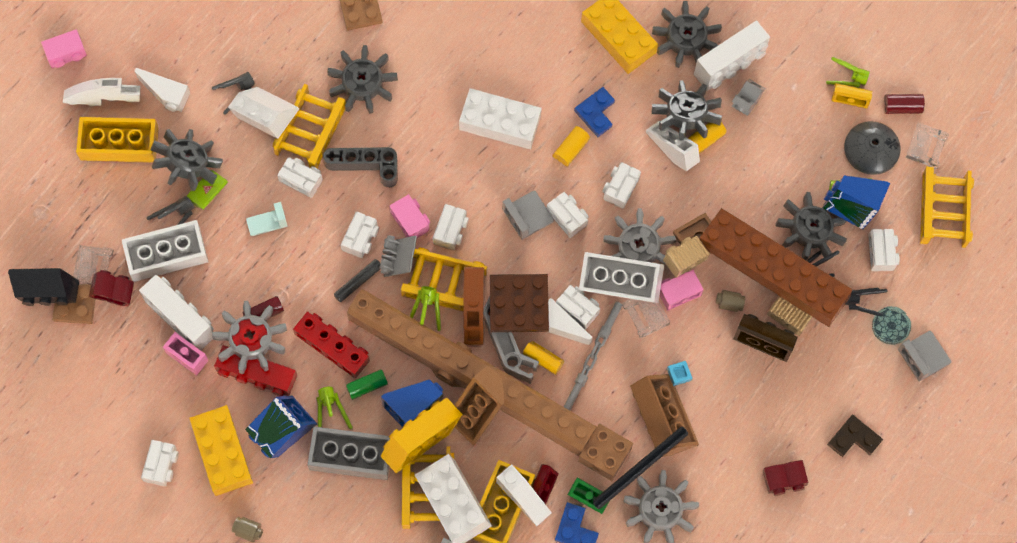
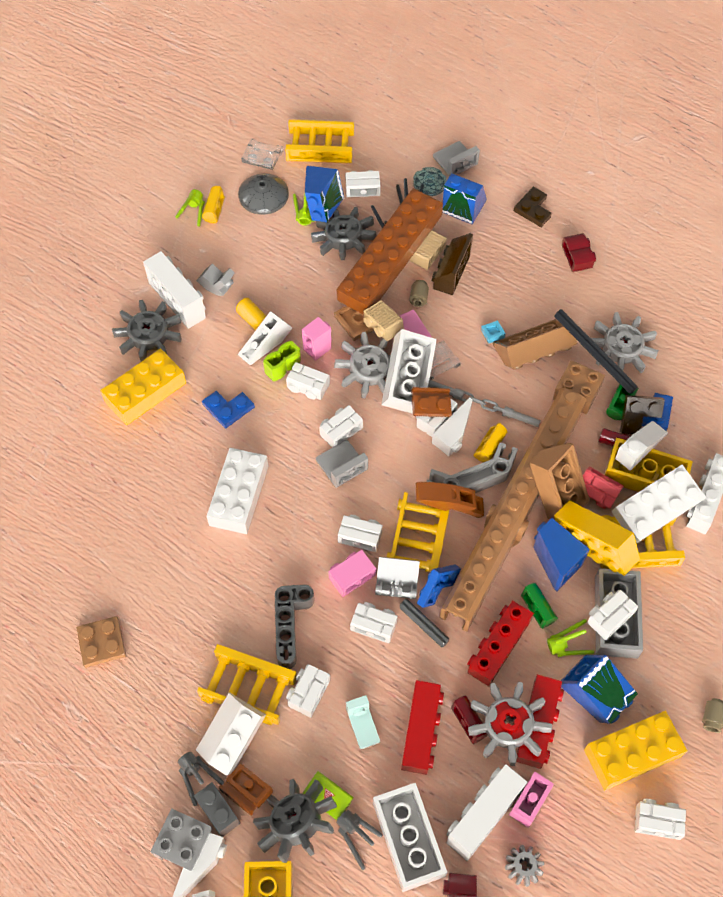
camera: 90 degrees left, 10 degrees down
(136, 350) = (532, 863): none -> light grey gear
(180, 73) = (181, 840): none -> light grey bracket
(203, 102) = (217, 809): none -> dark grey brick
(218, 124) = (246, 789): none -> dark orange plate
(259, 269) = (421, 727): none -> red brick
(340, 437) = (611, 614): none -> white brick
(363, 70) = (184, 642): dark grey gear -> none
(391, 288) = (437, 579): none -> blue plate
(427, 296) = (446, 543): lime plant -> none
(485, 455) = (601, 488): none -> coral brick
(519, 303) = (443, 458): reddish brown plate -> none
(571, 146) = (265, 427): yellow brick -> none
(573, 506) = (638, 407): none -> dark brown plate
(583, 295) = (431, 402): none -> dark orange plate
(641, 157) = (281, 361): none -> lime brick
(668, 192) = (316, 338): none -> bright pink brick
(687, 110) = (230, 325): dark grey gear -> none
(859, 356) = (463, 198): none -> blue slope
(904, 103) = (221, 168): dark red brick -> none

